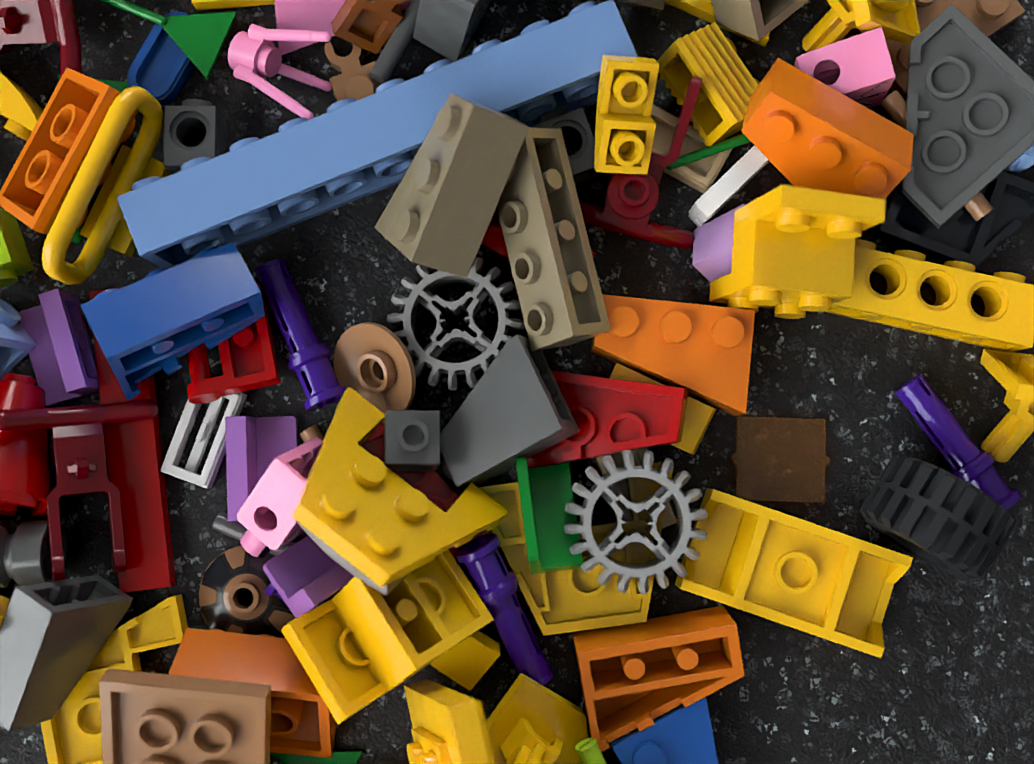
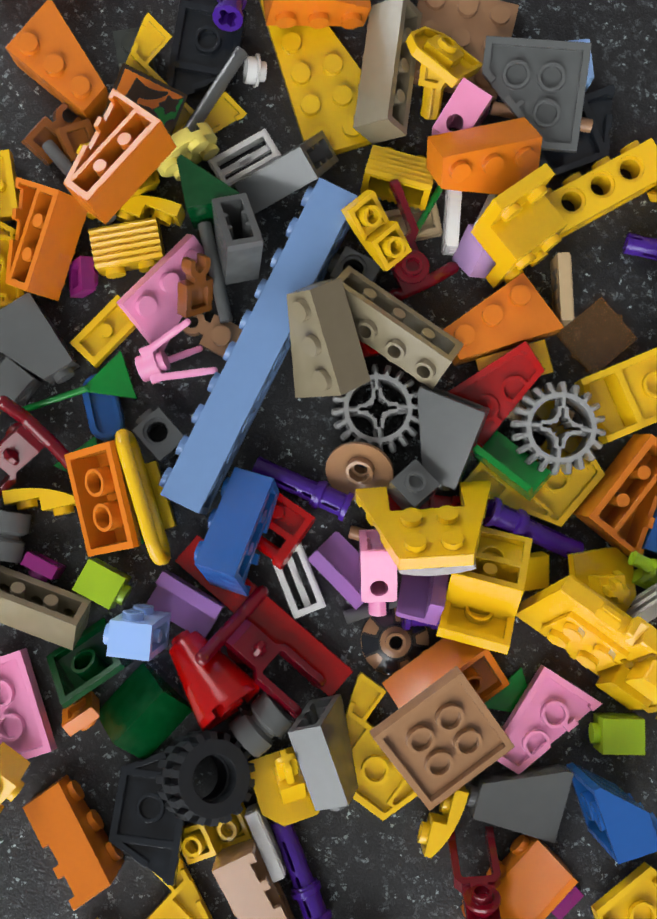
camera: 55 degrees left, 0 degrees up
(787, 370) = (562, 287): none -> tan tile

